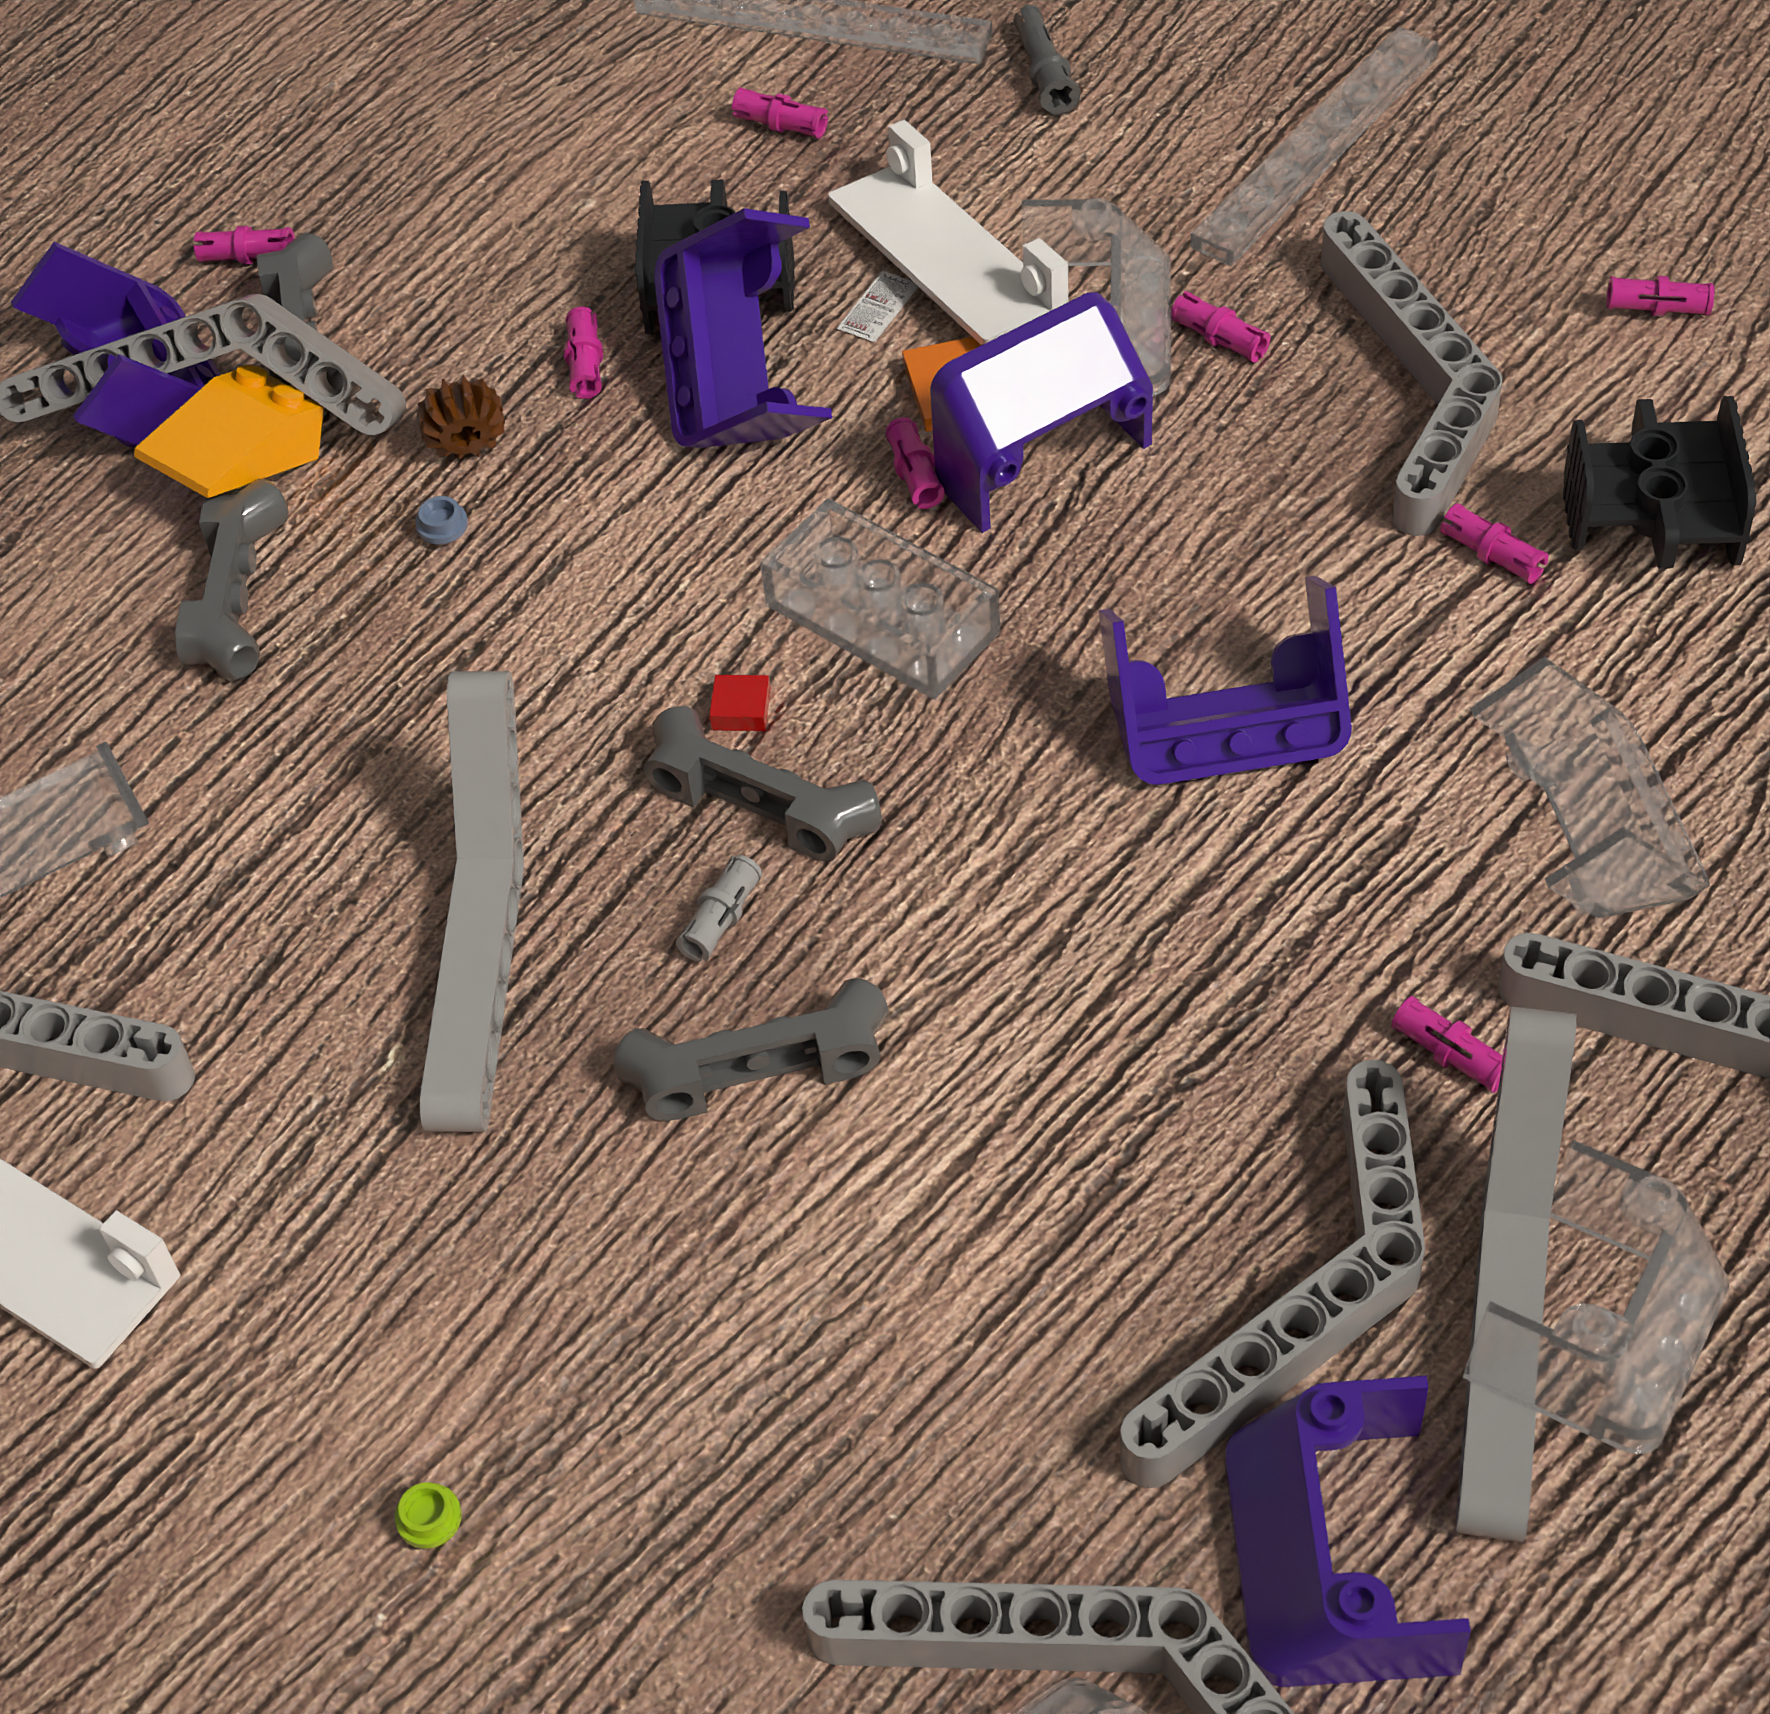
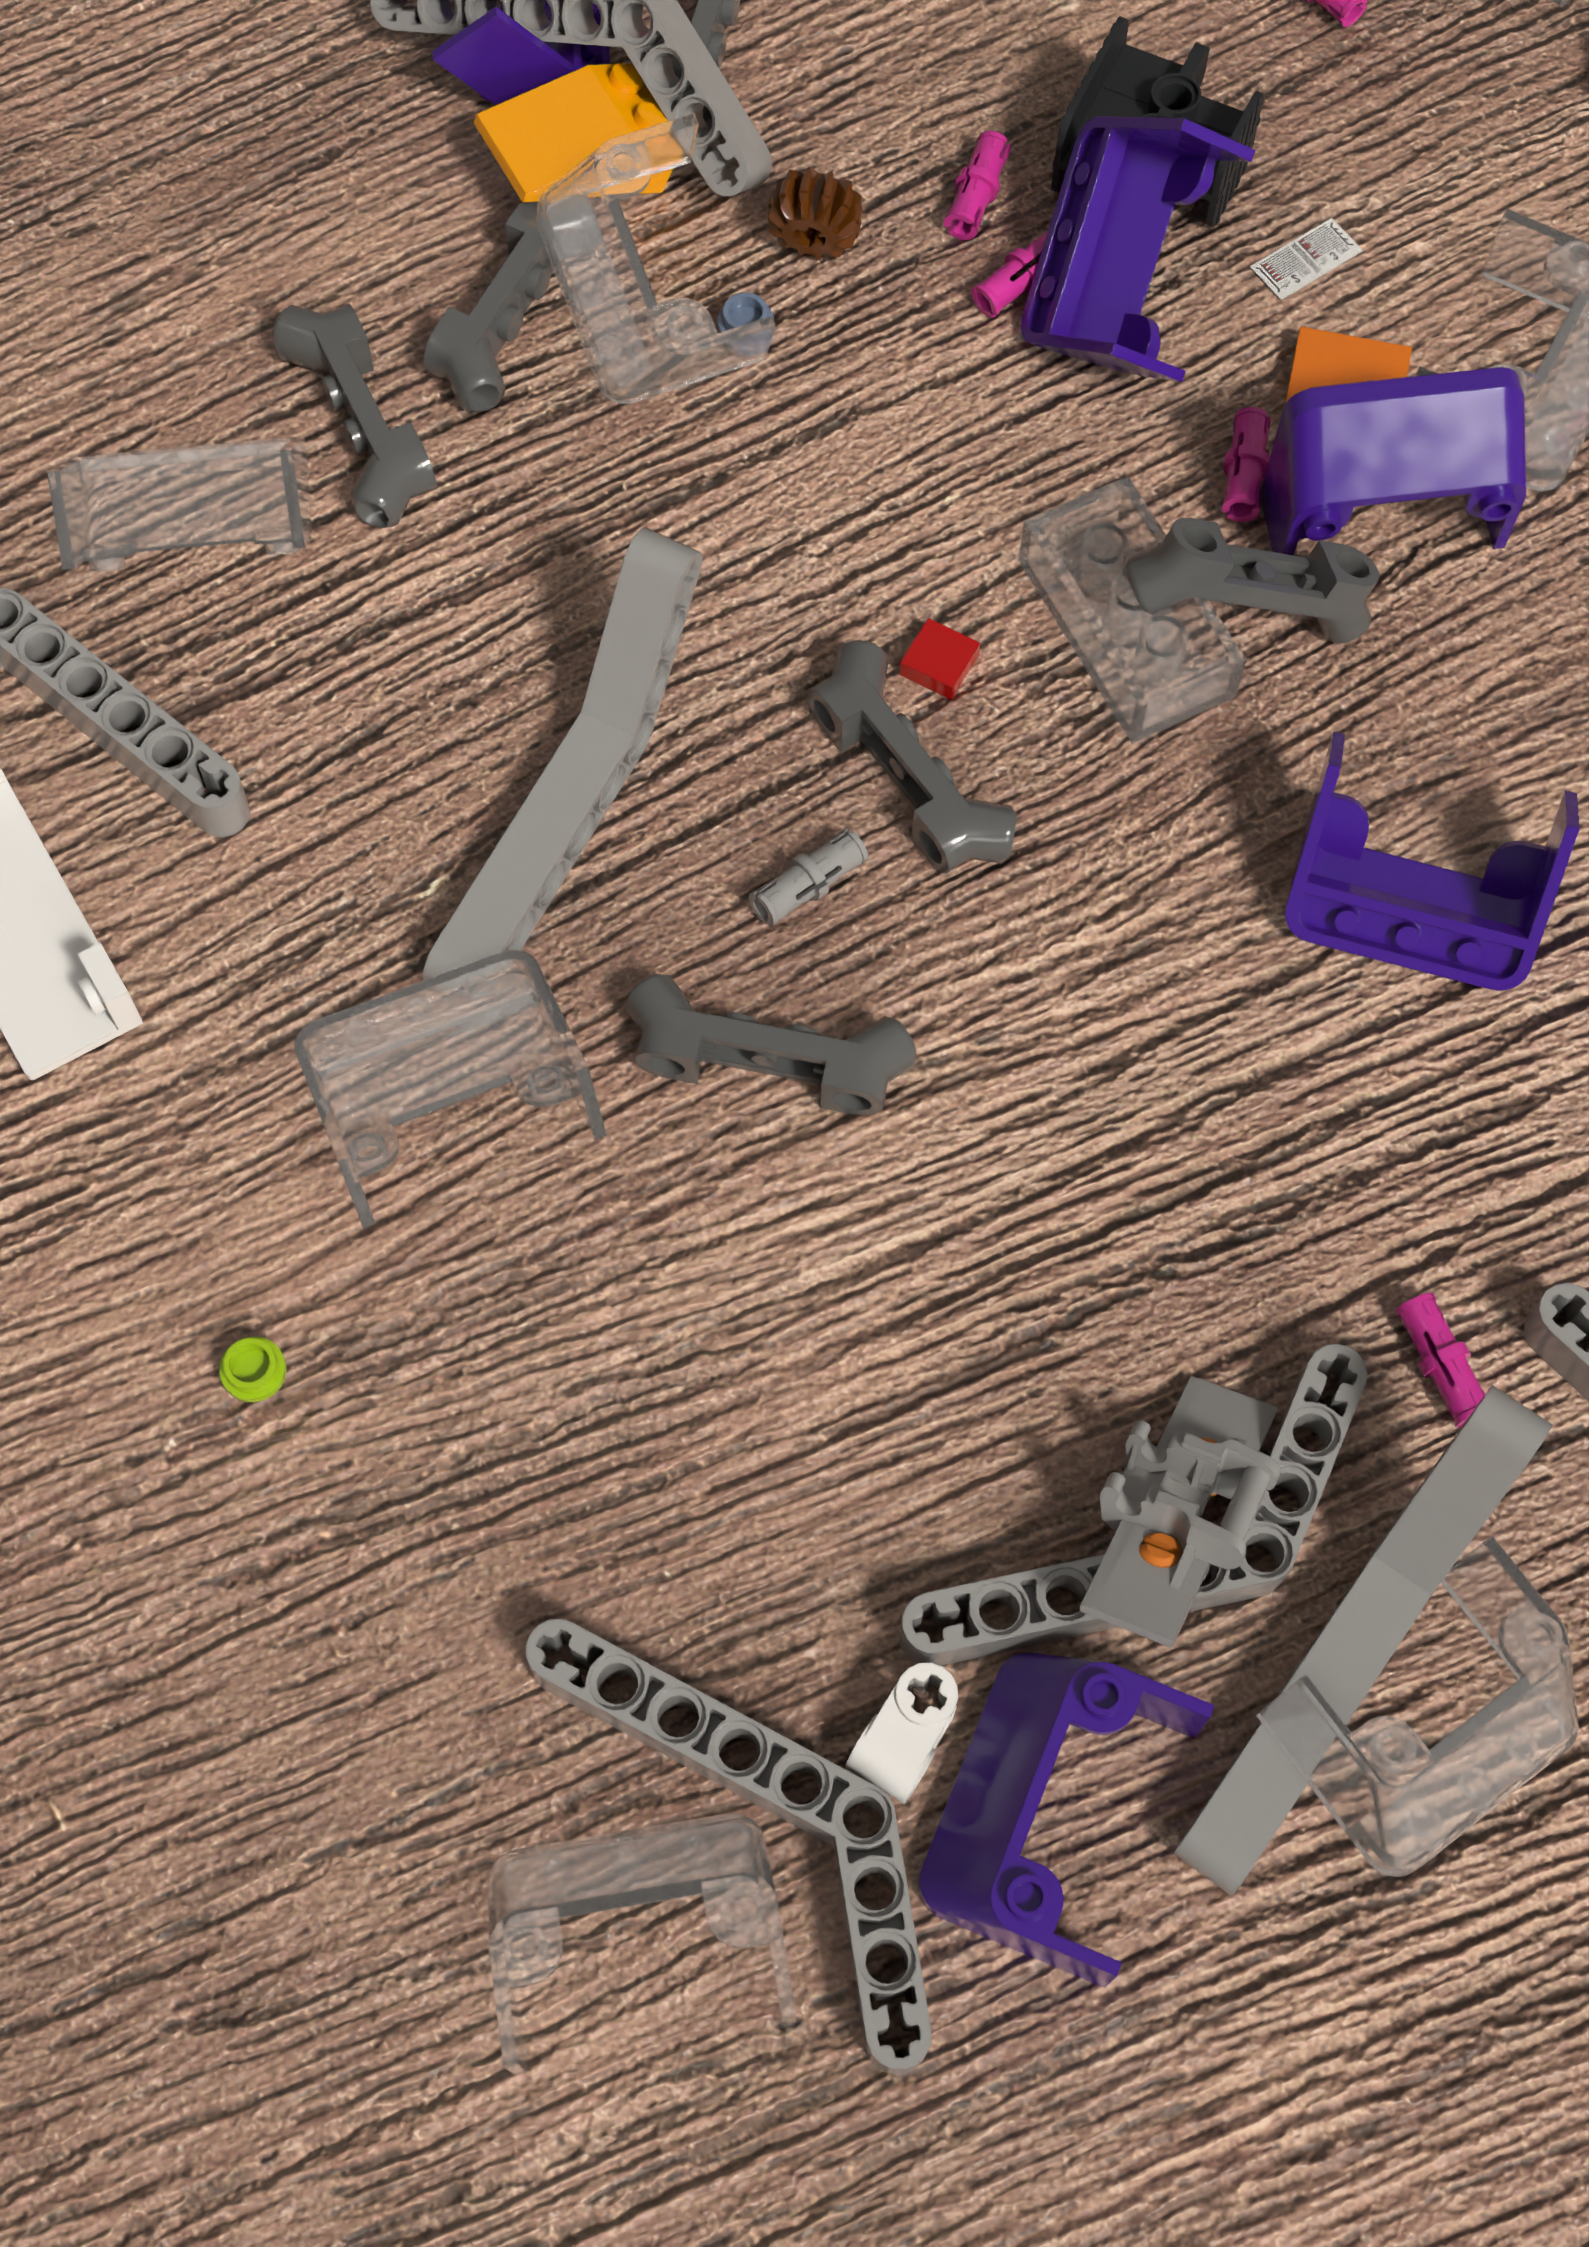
camera: 20 degrees right, 15 degrees up
(96, 673) = (396, 457): none -> dark grey plate
(328, 546) = (626, 336): none -> clear windscreen
(471, 1168) = (434, 1049): none -> clear windscreen
(642, 417) = (998, 289): none -> dark pink pin
(923, 527) = (1201, 565): none -> dark grey plate
(946, 248) = (1407, 224): white bracket -> none
(1175, 1541) = (901, 1741): none -> white piece
(1295, 1250) = (1158, 1502): none -> light grey piece

